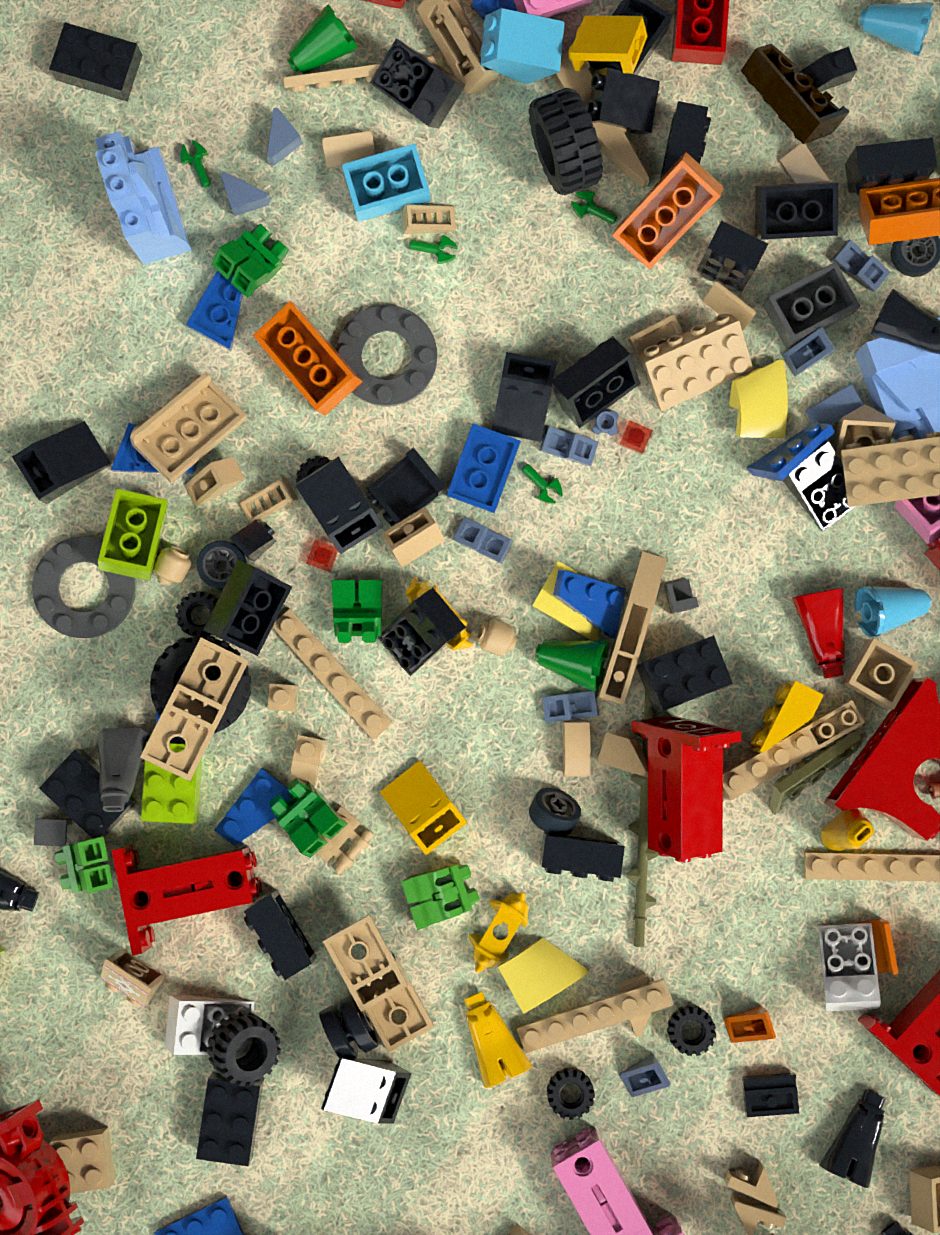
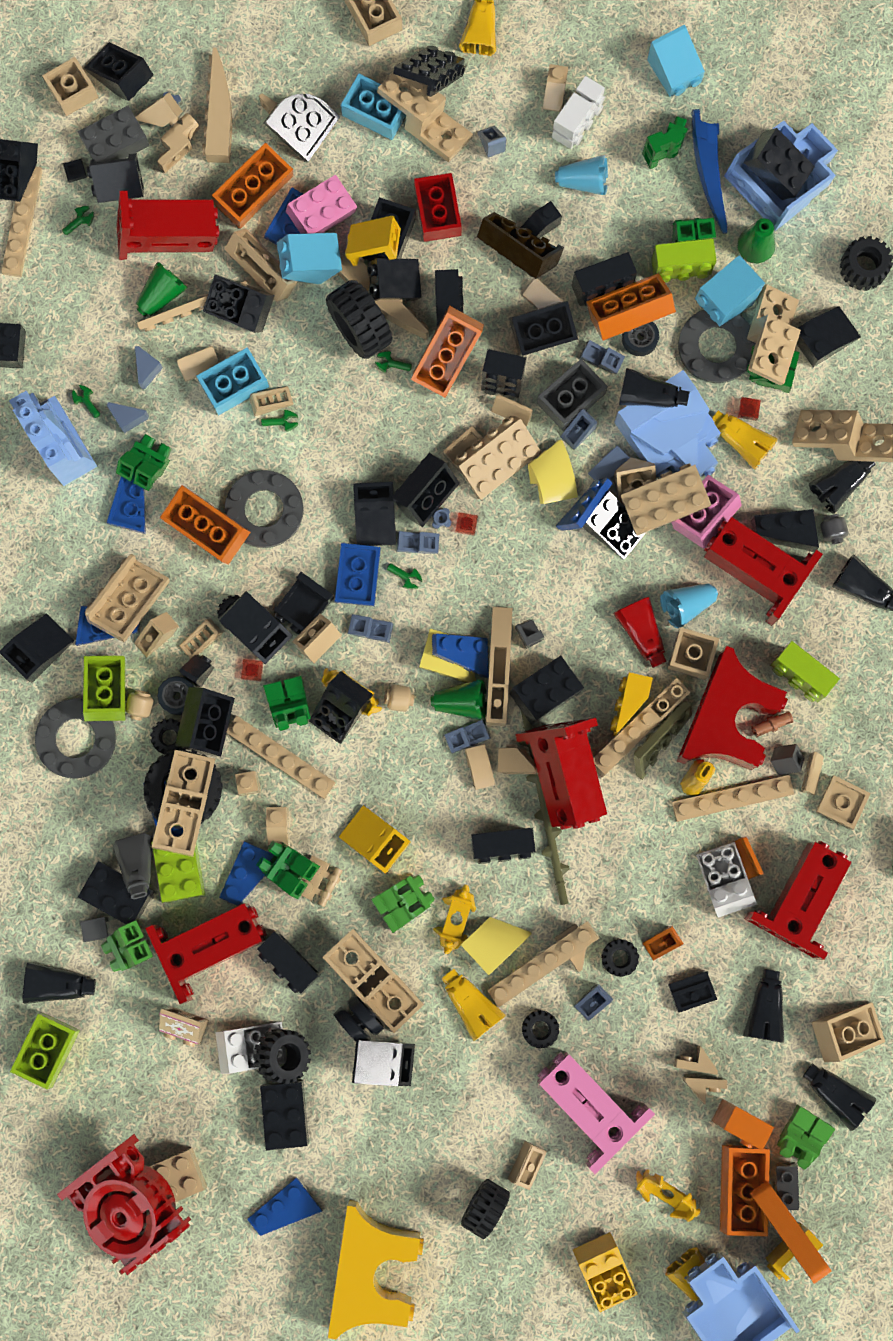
camera: 15 degrees left, 5 degrees down
(554, 811) = (474, 817): black wheel -> none

